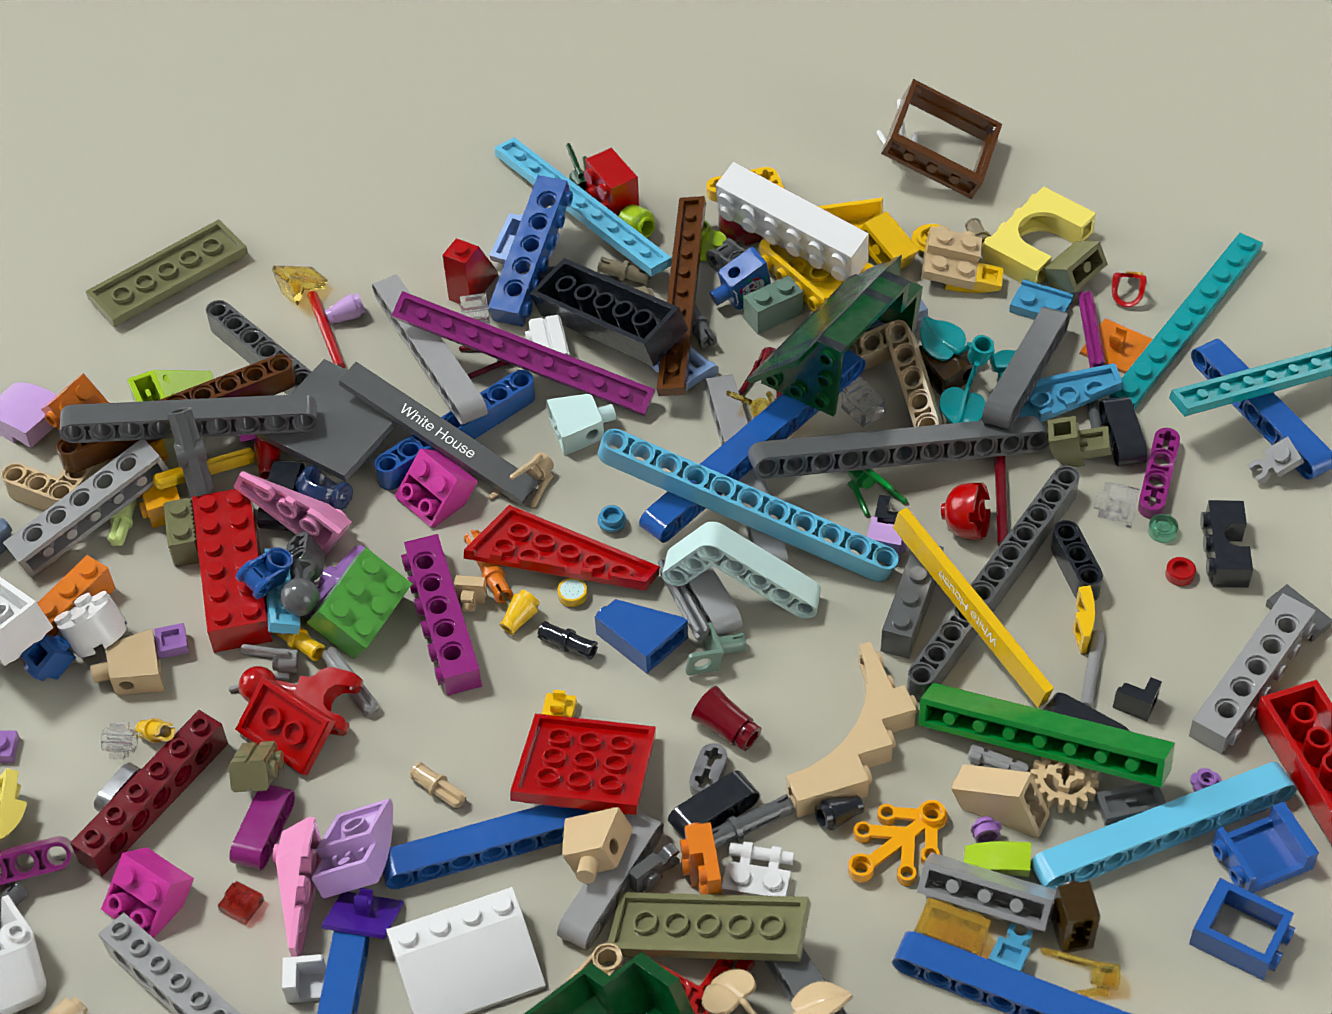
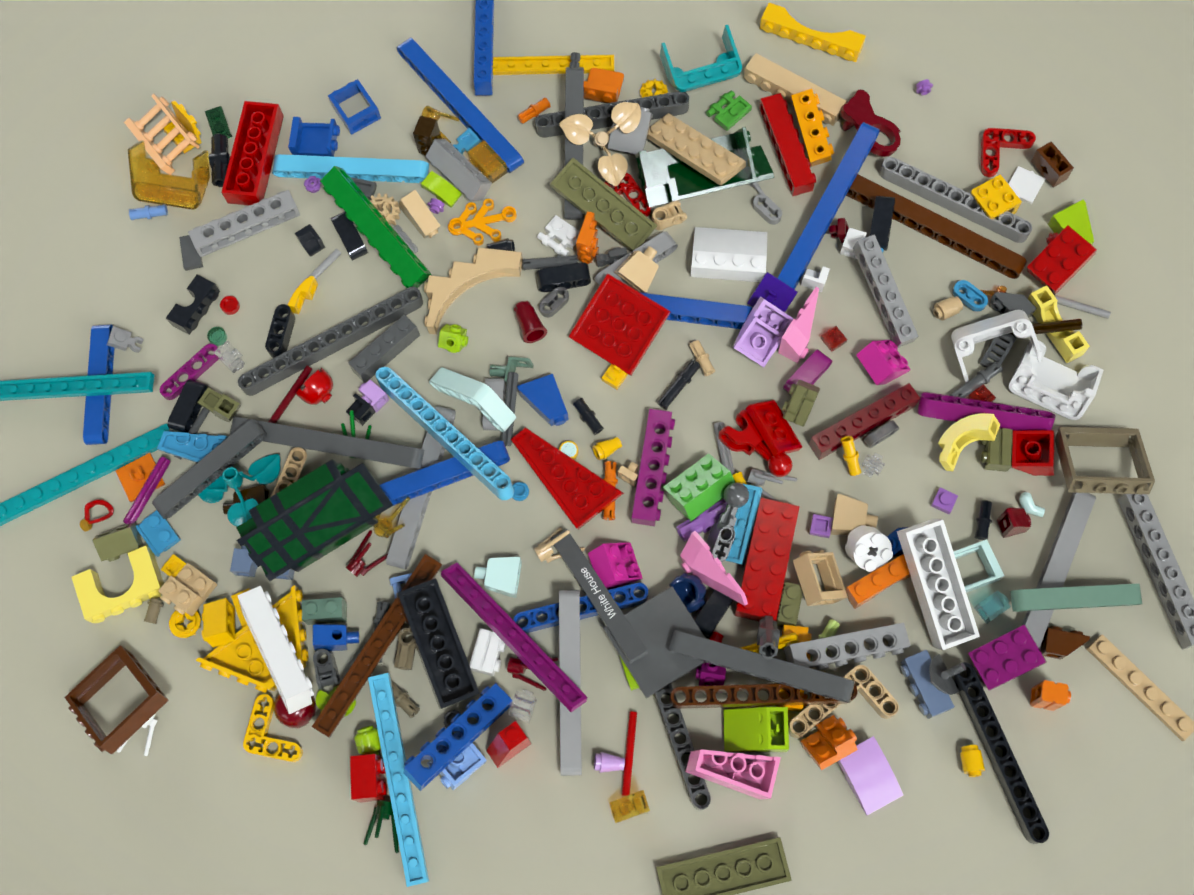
camera: 150 degrees left, 20 degrees up
(124, 564) = (830, 576): none -> tan window
(189, 336) = (738, 771): none -> bright pink wedge
(266, 571) = (752, 522): blue piece -> none
(452, 744) = (684, 377): none -> black pin
(832, 653) = (453, 338): none -> lime brick
(973, 608) = (361, 313): yellow tile -> none

